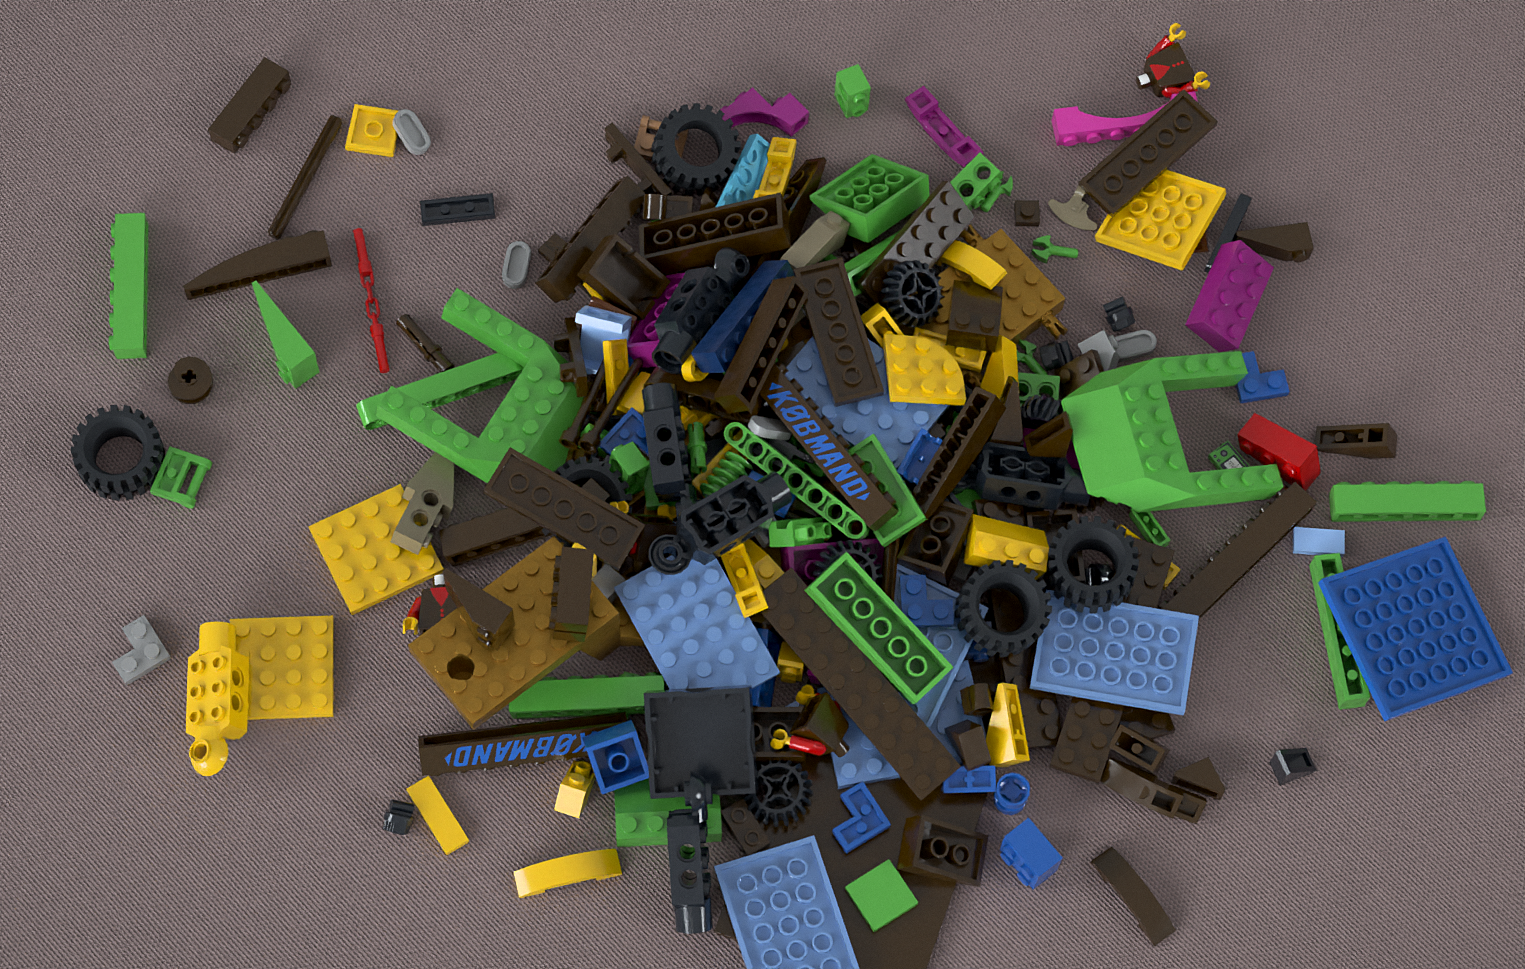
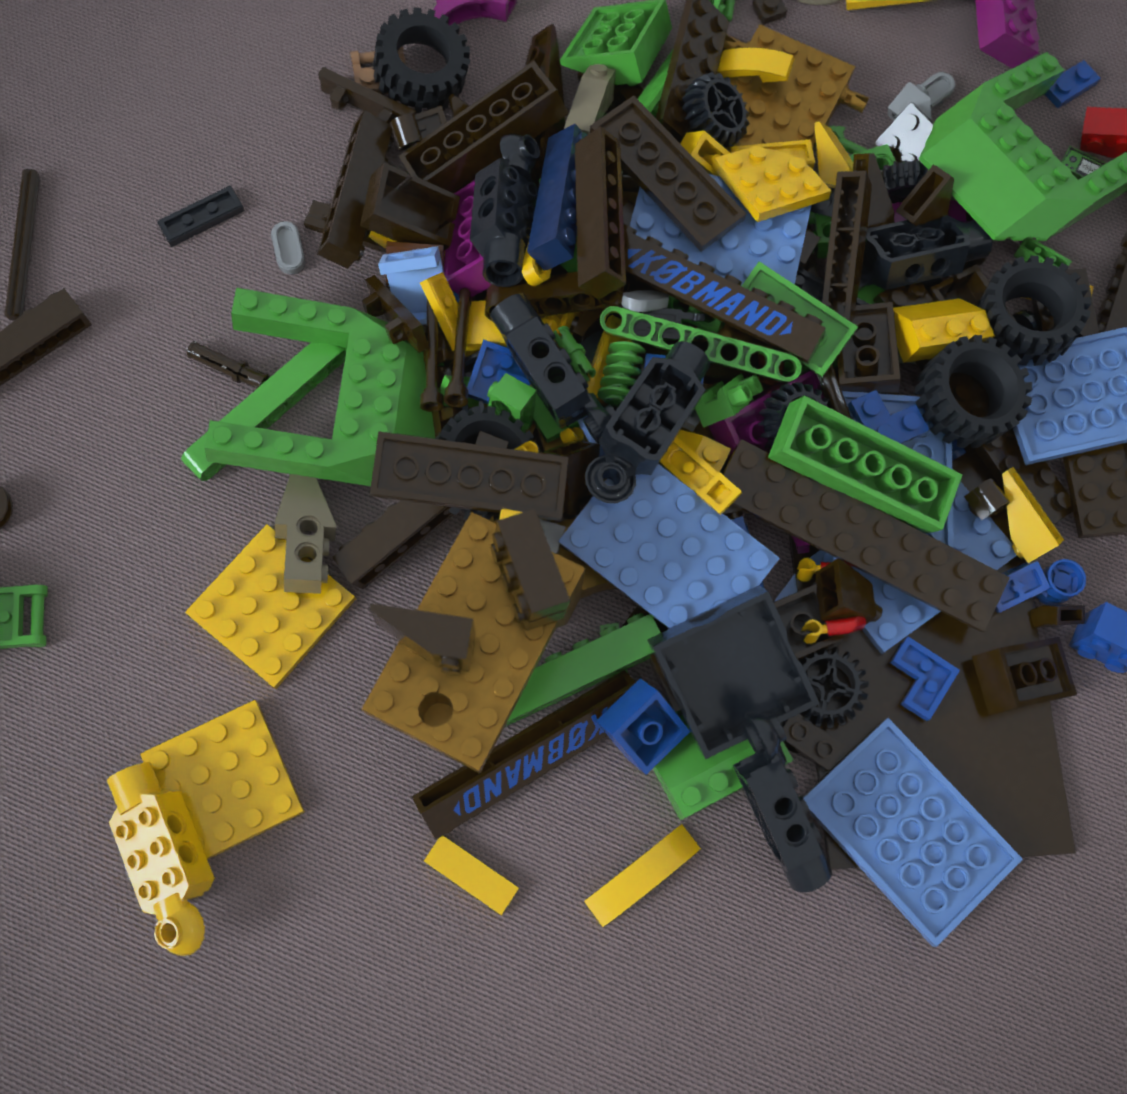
camera: 25 degrees left, 5 degrees up
(147, 651) = (60, 831): light grey plate -> none
(293, 354) = (86, 431): bright green slope -> none
(372, 131) = (76, 170): yellow tile -> none
(376, 329) = (168, 370): red piece -> none
(398, 817) = (430, 898): black piece -> none
(411, 132) = (117, 155): light grey tile -> none
(429, 607) = (364, 647): torso -> none
(575, 789) = (609, 778): yellow slope -> none
(747, 172) = (483, 65): medium azure wing -> none
(778, 167) = (508, 48): yellow slope -> none
(789, 665) = (772, 538): yellow slope -> none
(881, 895) = (985, 751): bright green tile -> none
(918, 457) = (812, 267): blue hinge -> none
(969, 744) = (1000, 547): dark brown slope -> none
(974, 316) = (786, 113): dark brown slope -> none
(984, 812) = (1057, 615): none -> dark brown piece
(1051, 249) = (811, 32): bright green bar -> none
(1055, 354) = (868, 127): black piece -> none
(1119, 314) = (907, 66): black piece -> none

